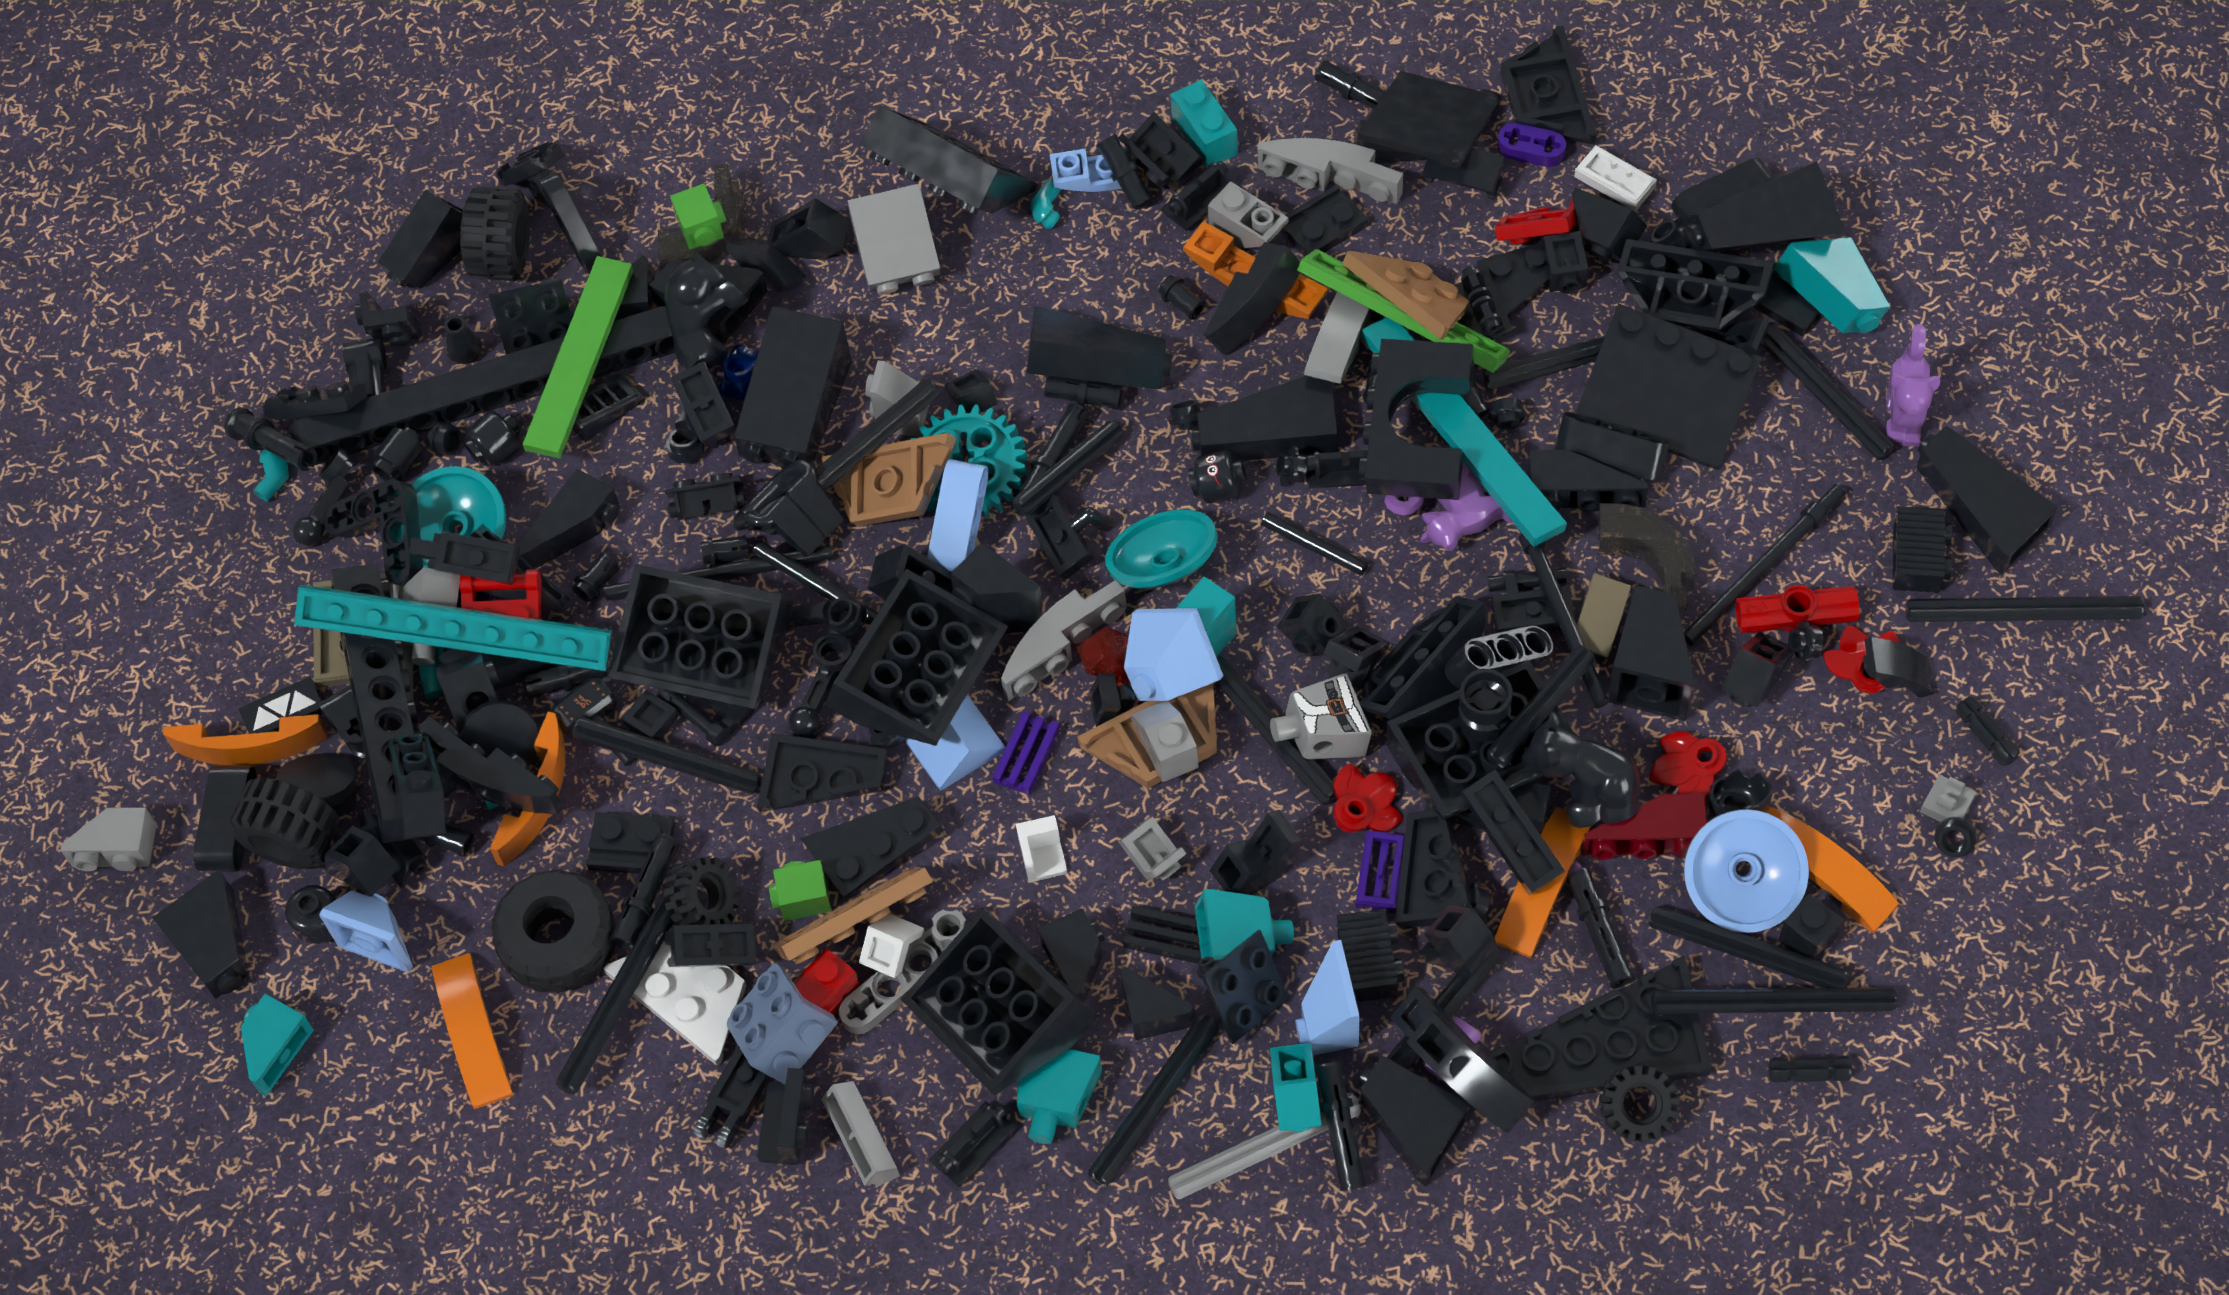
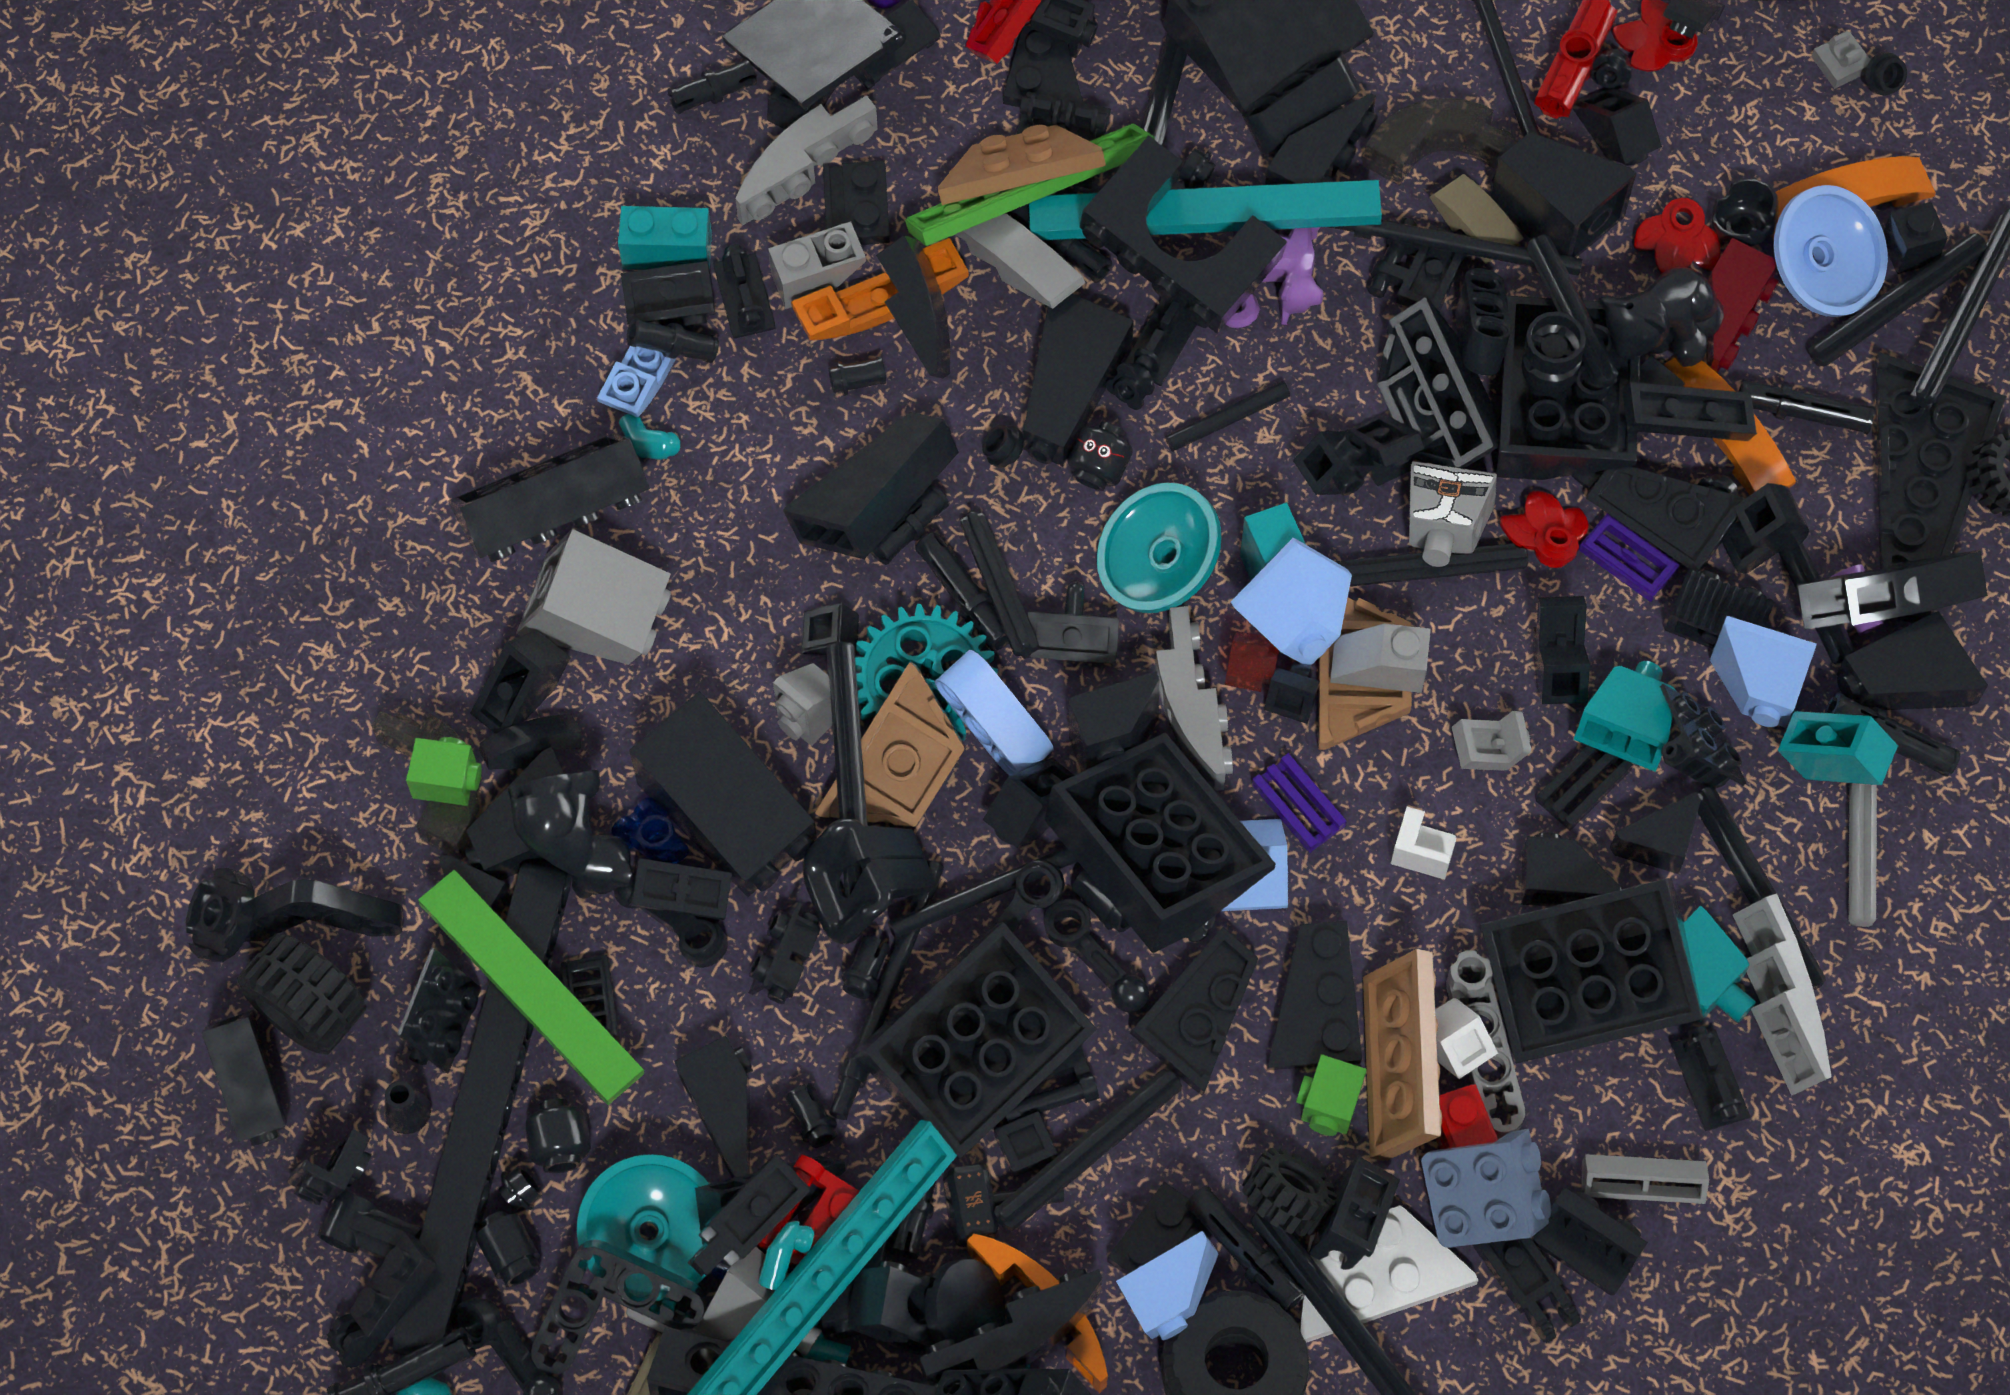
camera: 65 degrees left, 5 degrees up
(452, 589) = (780, 1251): none -> teal arm
(573, 846) = (1170, 1286): none -> light blue slope
(1056, 1166) = (1787, 998): none -> light grey slope

